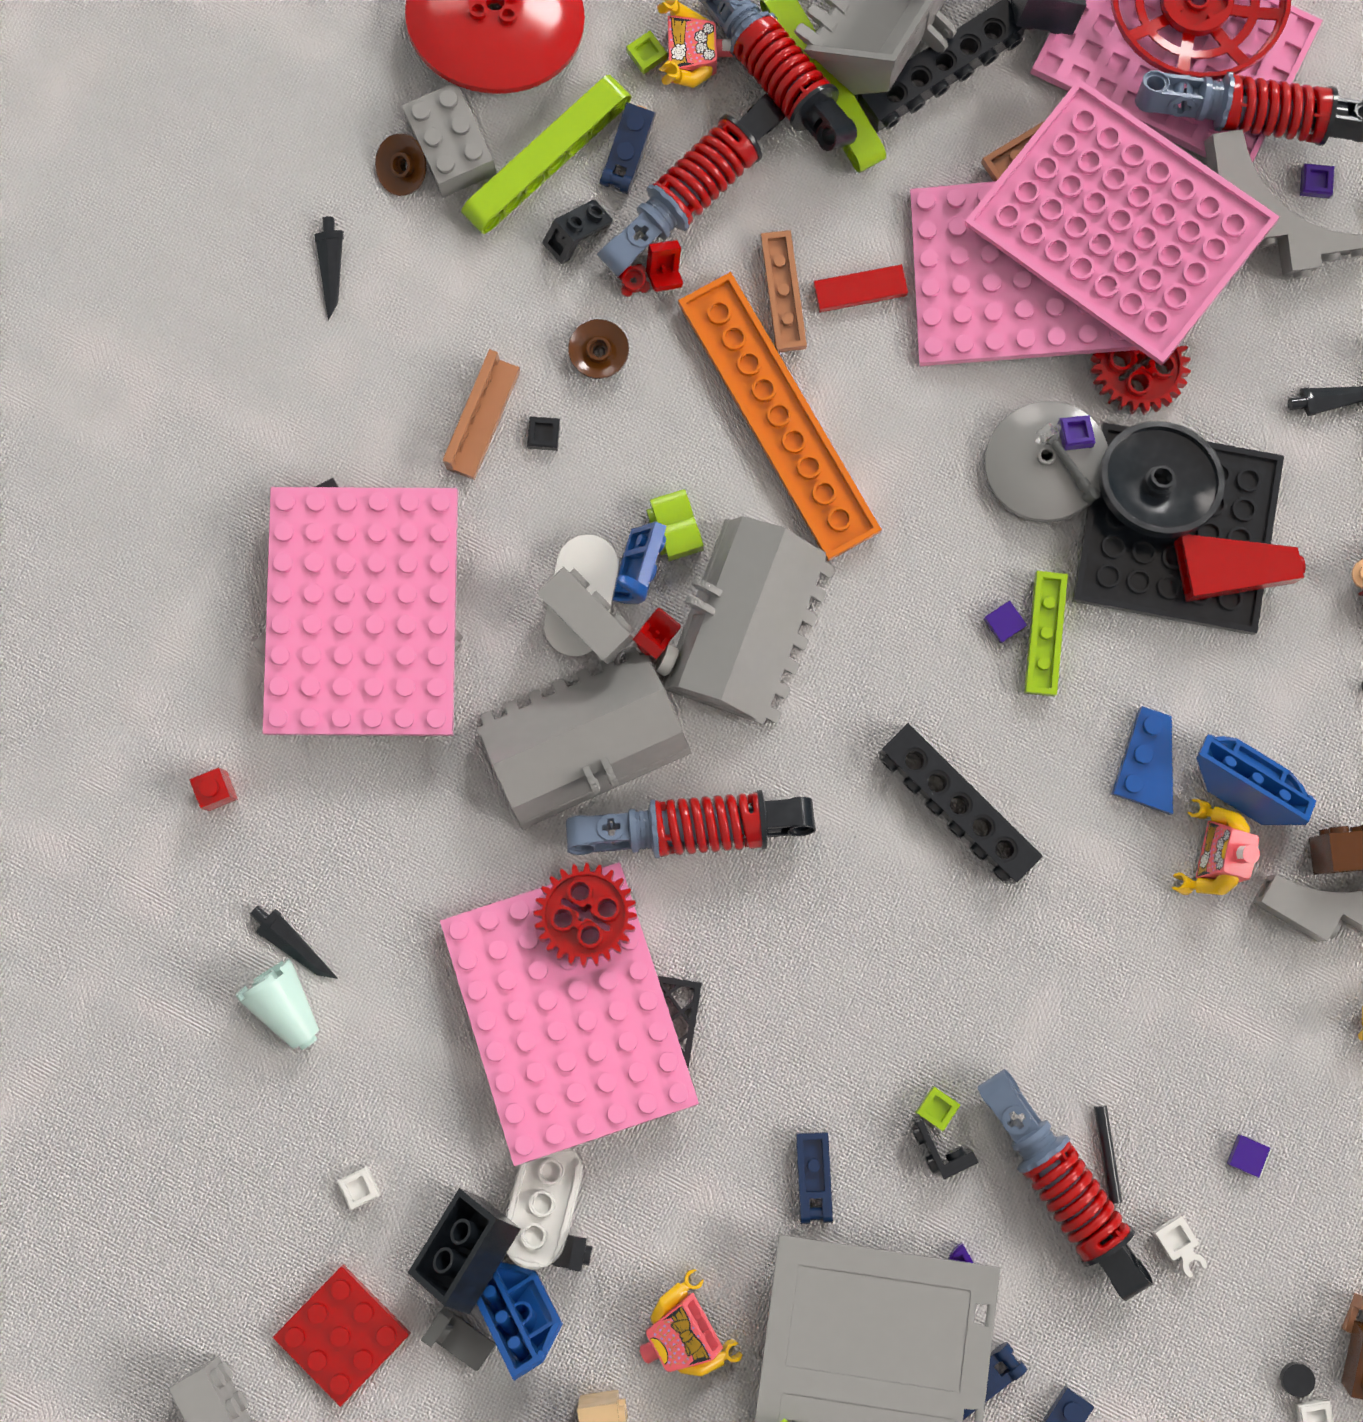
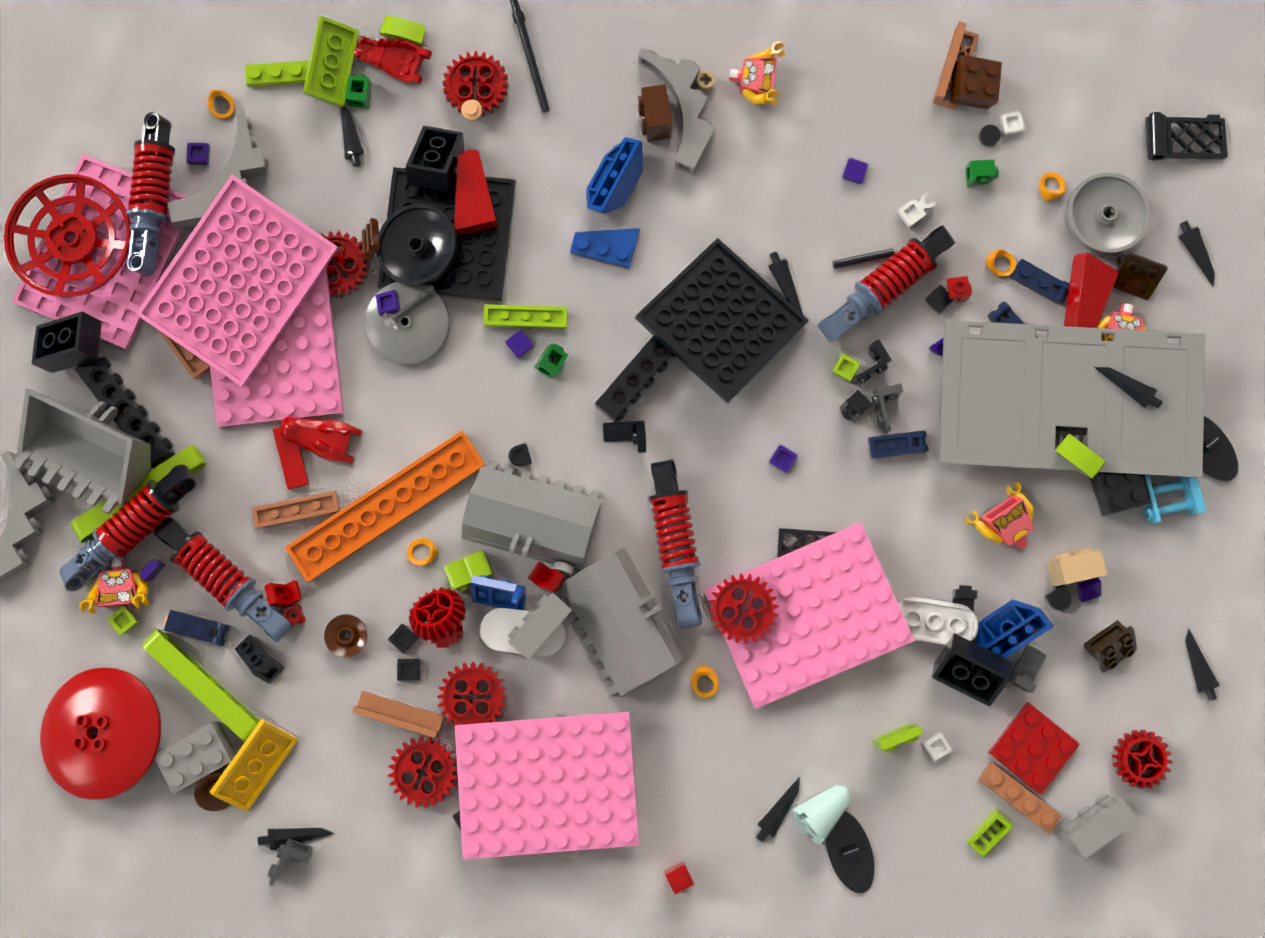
camera: 95 degrees left, 0 degrees up
(219, 1043) = (851, 854): none -> black shield
(244, 1256) = (984, 827): none -> lime slope
(272, 1304) = (1019, 797): none -> nougat plate
(311, 262) = (295, 850): none -> dark grey bracket
(380, 1138) = (890, 741): none -> lime plate
(413, 421) = (440, 780): none -> red gear
(430, 215) = (254, 765): none -> yellow plate
(502, 851) = (704, 671): none -> light orange piece
(523, 520) = (472, 677): none -> red gear
(560, 1402) = (1059, 598): none -> black tile
(579, 485) = (453, 639): none -> red bracket
(588, 428) = (402, 638): none -> black tile
(609, 478) = (440, 618): none -> red gear
(705, 477) = (433, 551): none -> light orange piece
(713, 92) = (152, 570): none -> dark purple tile
(806, 998) = (783, 458): none -> dark purple tile
(838, 611) = (519, 455): none -> black tile
(863, 767) = (626, 431): none -> black bracket
(877, 1116) = (855, 406): none -> black bracket
(885, 332) = (322, 437): none -> red animal
(892, 1172) = (890, 393): none -> dark grey bracket
(982, 677) = (558, 356): none -> green brick
(1022, 923) = (721, 320): none -> black plate
(1036, 1268) = (939, 299): none -> black tile
(1050, 1299) = (959, 288): none -> red bracket
(1086, 1026) = (783, 277): none -> black bar
(1104, 1368) = (989, 260): none -> light orange piece
(1174, 415) = (370, 239): none -> reddish brown tile
(1225, 855) = (663, 192): torso -> none
(1237, 1357) = (981, 172): none -> green brick
(1293, 513) = (434, 158): none -> black brick

